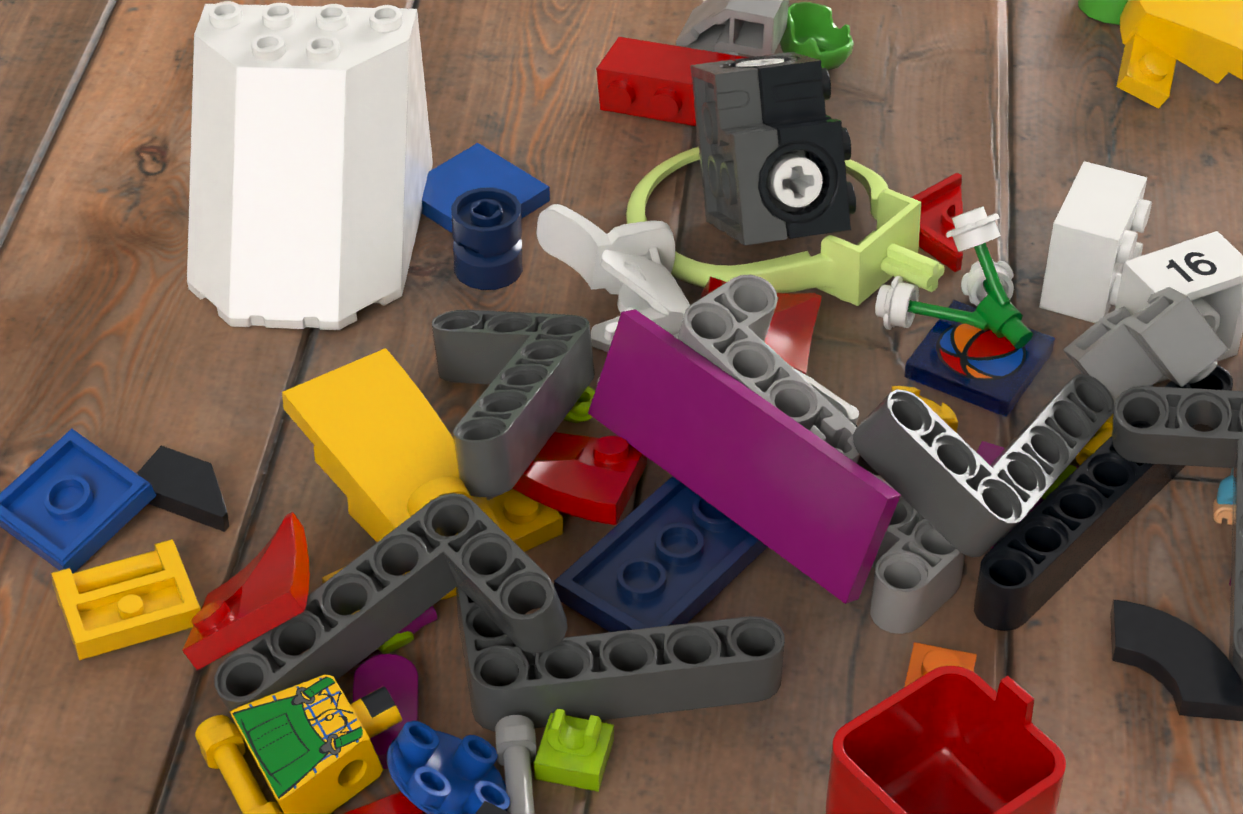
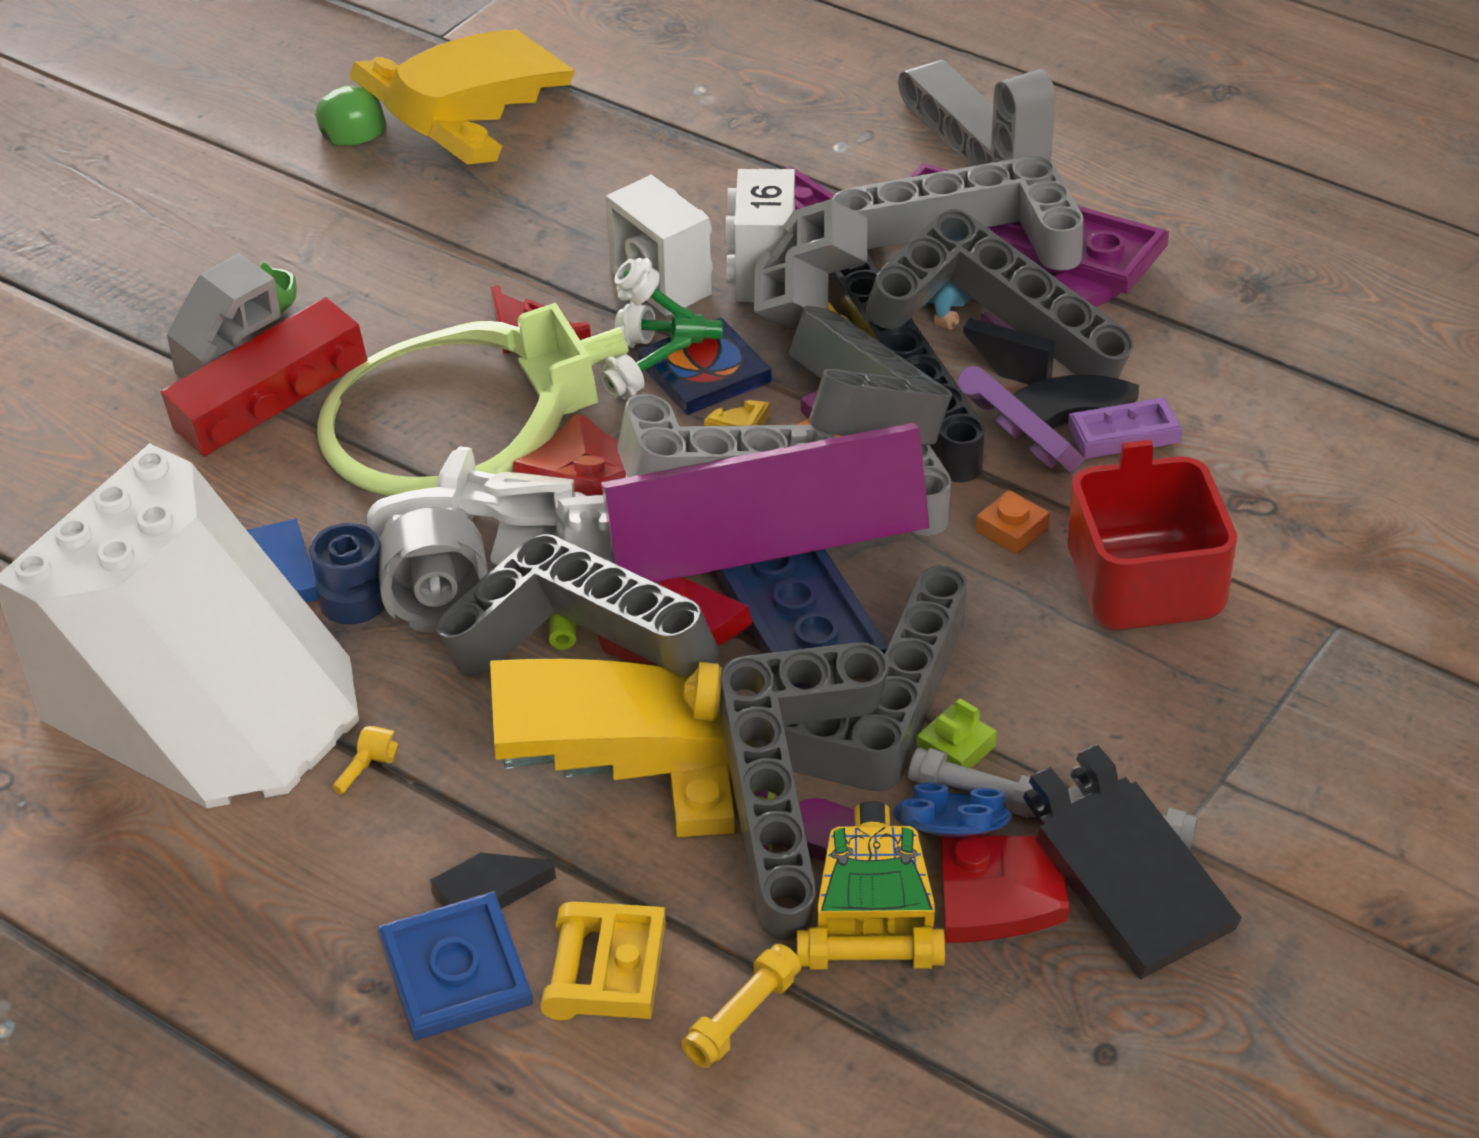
camera: 60 degrees left, 0 degrees up
(68, 708) = (710, 1038): none -> yellow bar
(255, 599) = (703, 854): red plate -> none
(304, 348) = (373, 744): none -> yellow hand
(521, 270) = (428, 563): none -> light grey brick
(770, 149) = (441, 351): piece -> none
(1084, 620) = (1018, 418): none -> medium lavender plate
(1164, 720) = (1105, 429): none -> medium lavender plate
(1196, 573) = (1012, 352): none -> black tile

